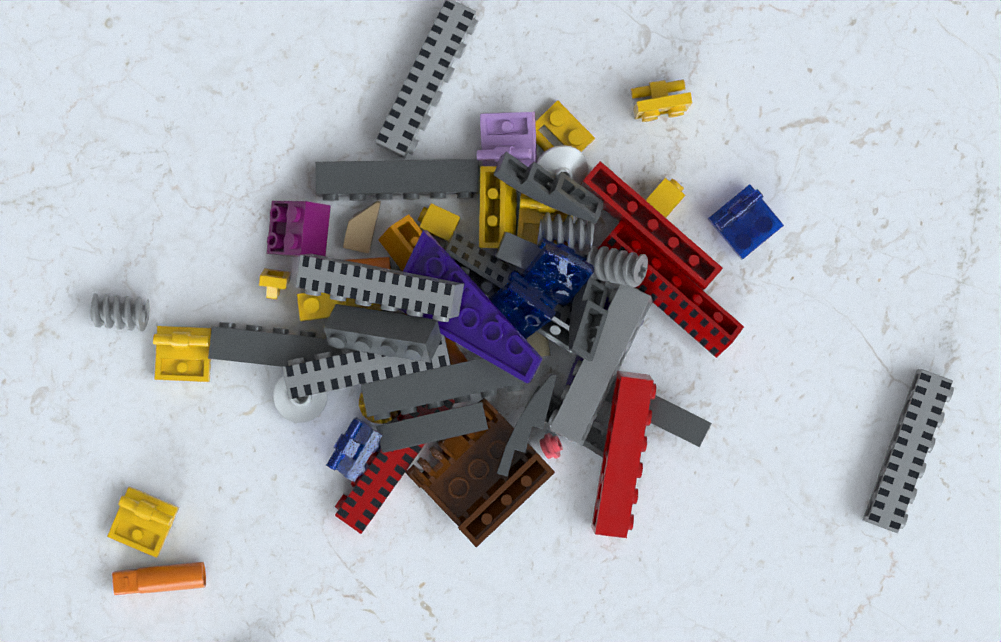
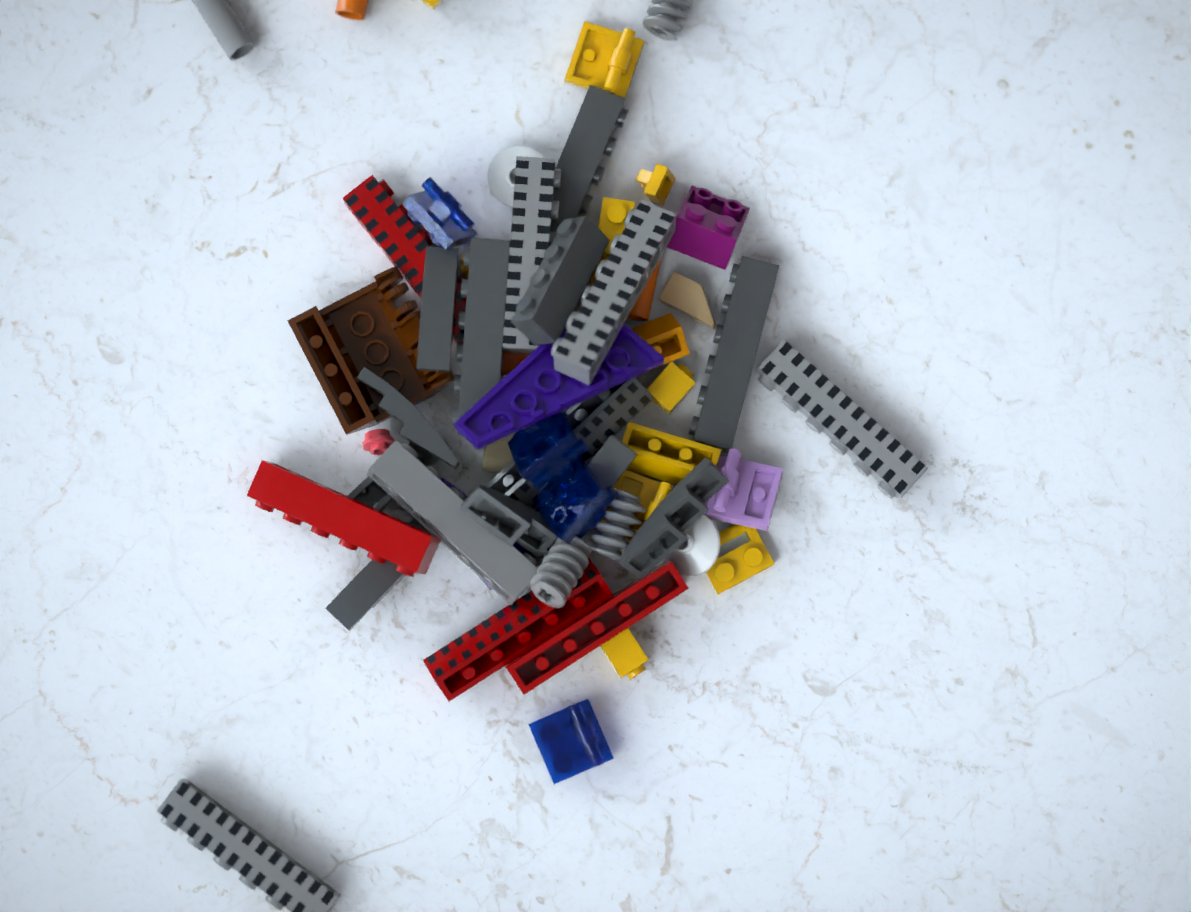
camera: 105 degrees right, 5 degrees down
(660, 102) = (739, 681): yellow plate -> none

